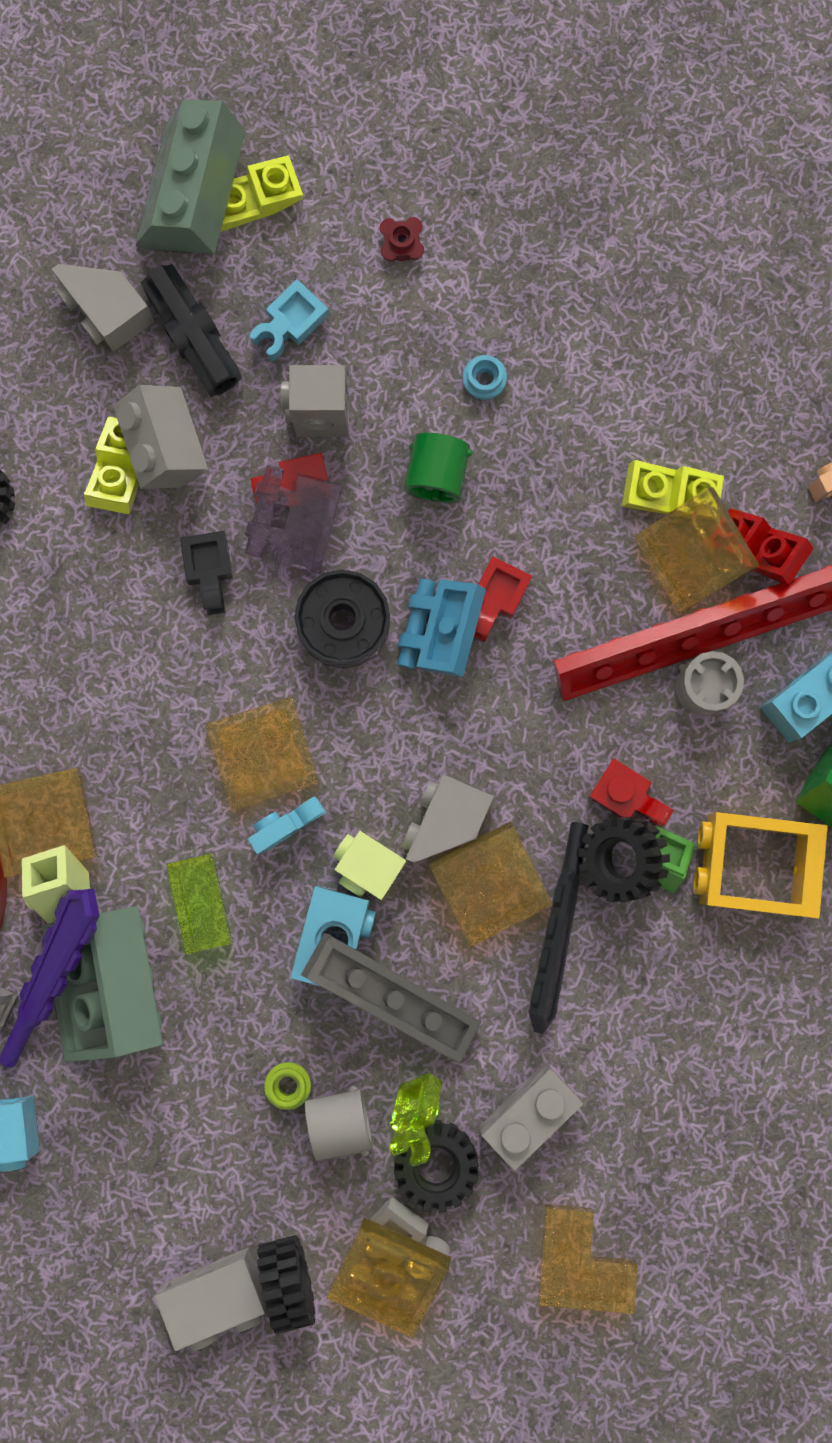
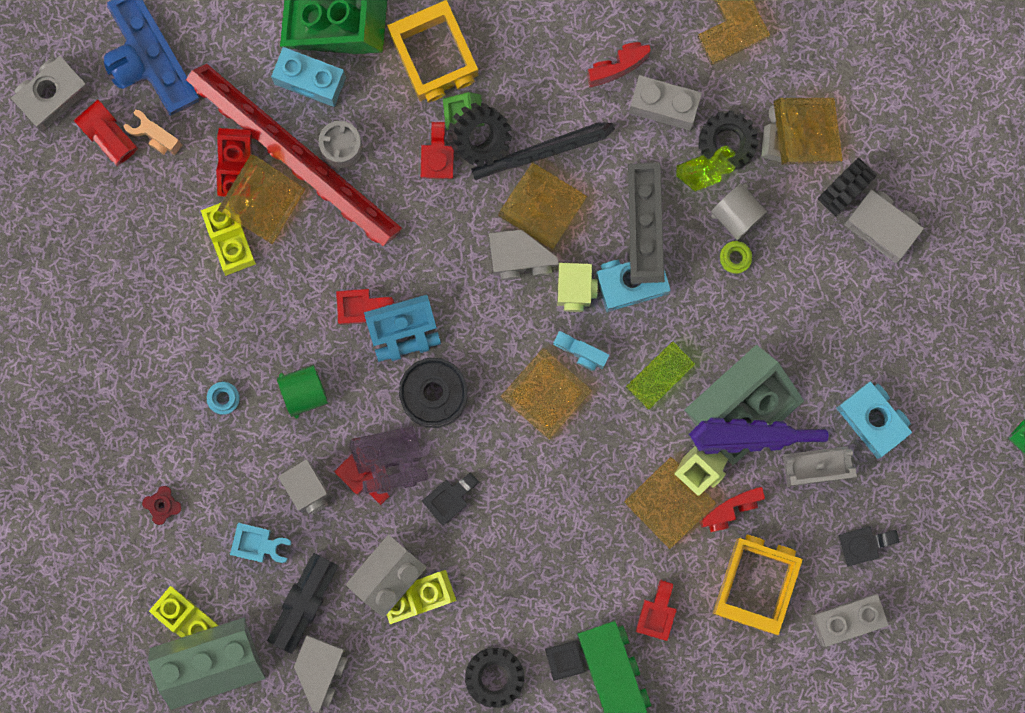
camera: 125 degrees left, 0 degrees up
(612, 1101) = (628, 59): none -> red slope

